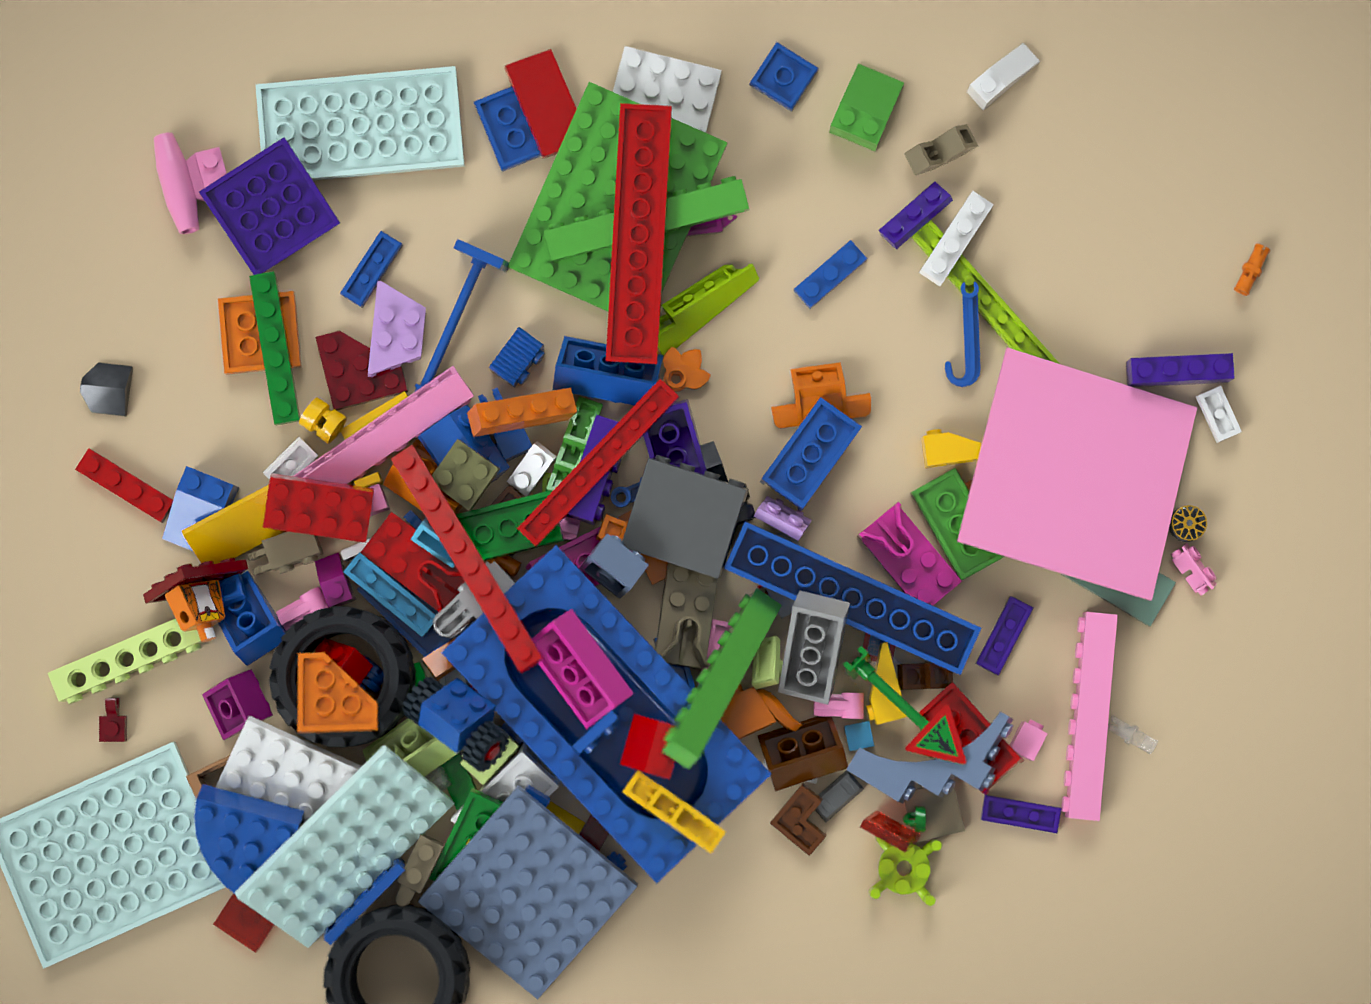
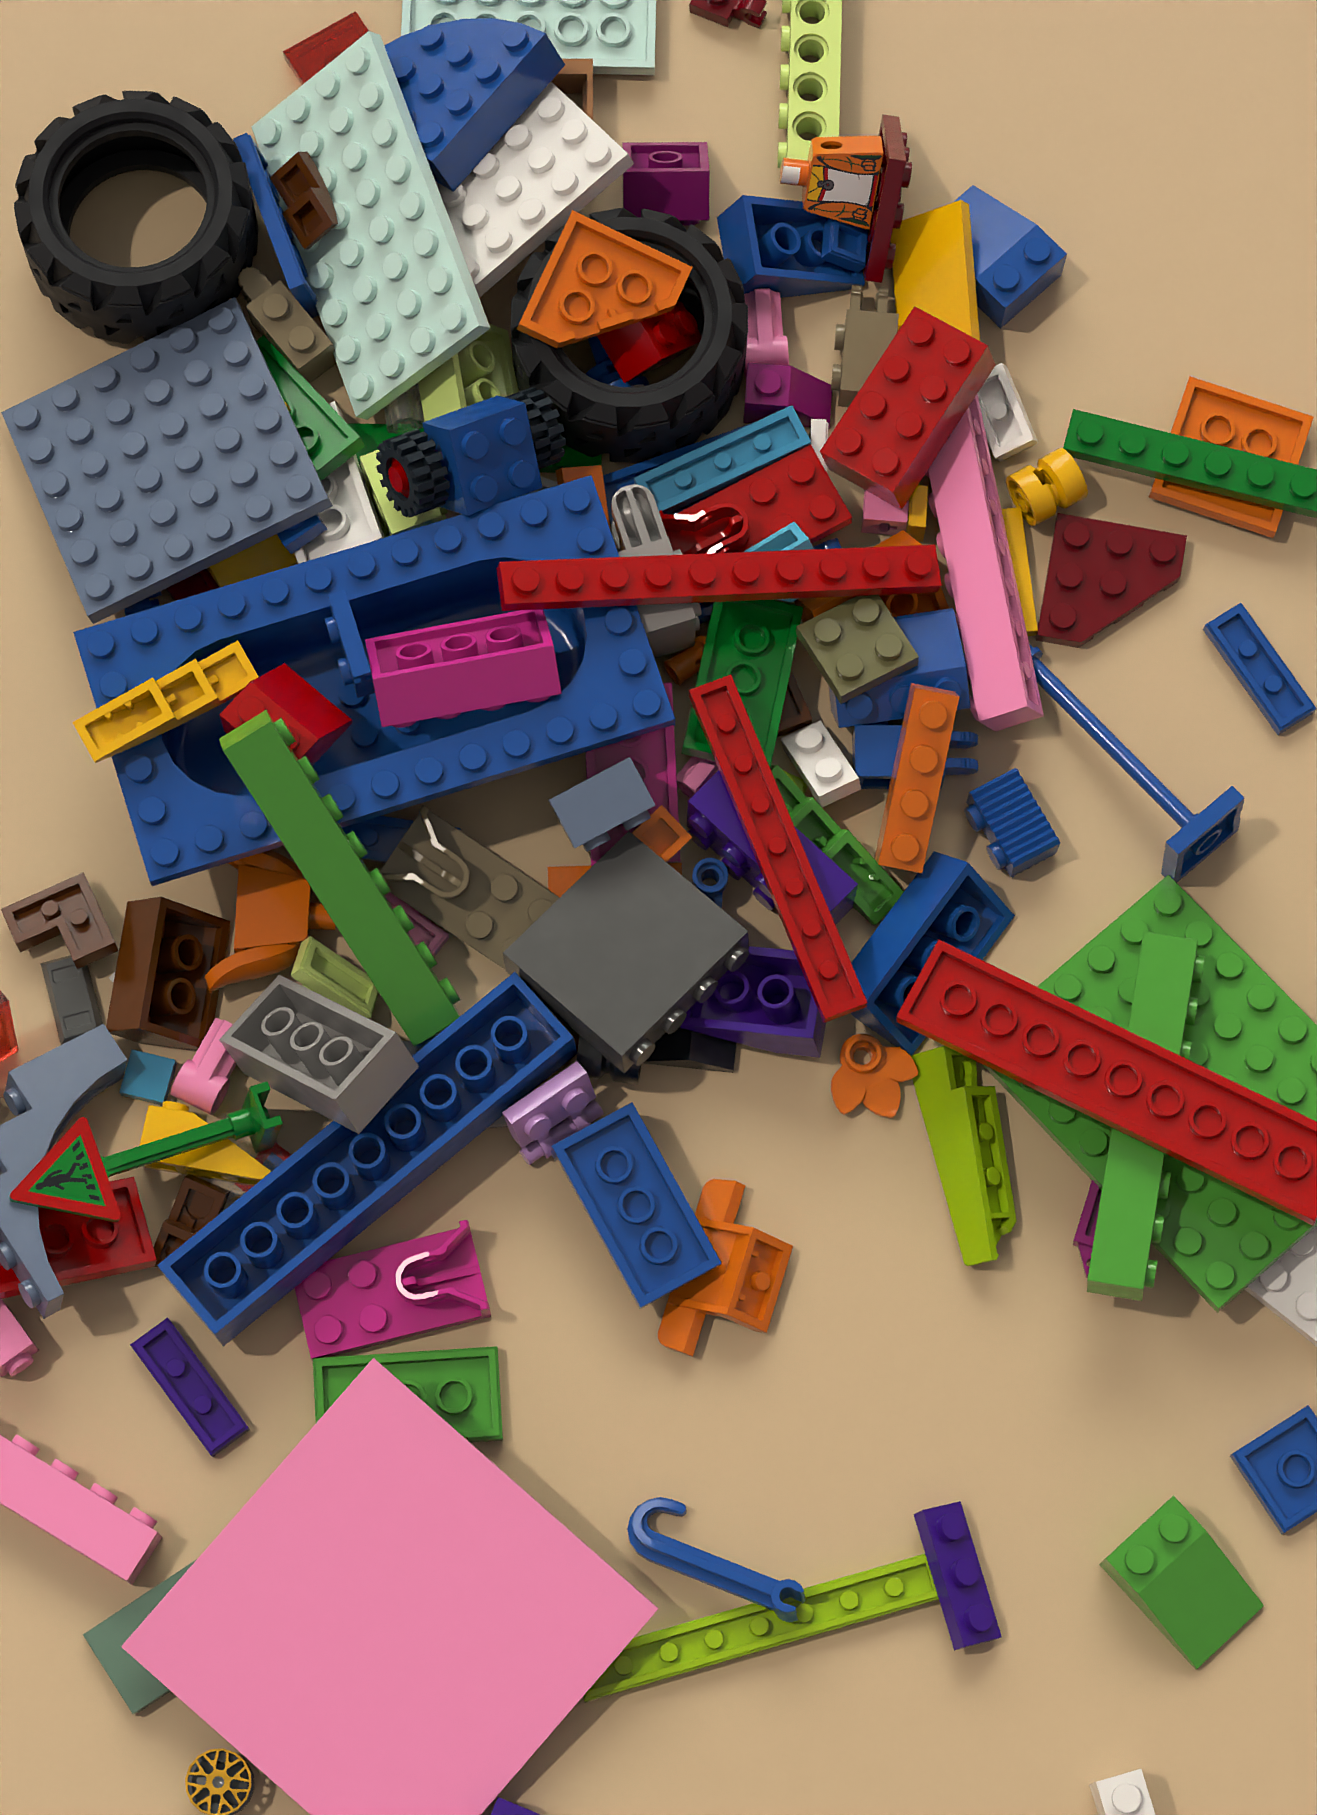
camera: 110 degrees right, 10 degrees down
(107, 388) = (1244, 204): black slope -> none
(125, 485) = (1082, 166): red plate -> none
(344, 888) = (307, 198): none -> reddish brown slope
(395, 331) = (1141, 658): lavender wing -> none
(830, 274) = (922, 1387): blue plate -> none
(941, 150) = (1050, 1672): dark tan brick -> none
(948, 449) = (539, 1435): yellow slope -> none
(956, 238) = (886, 1623): white plate -> none
(1200, 575) = (118, 1764): bright pink hinge -> none

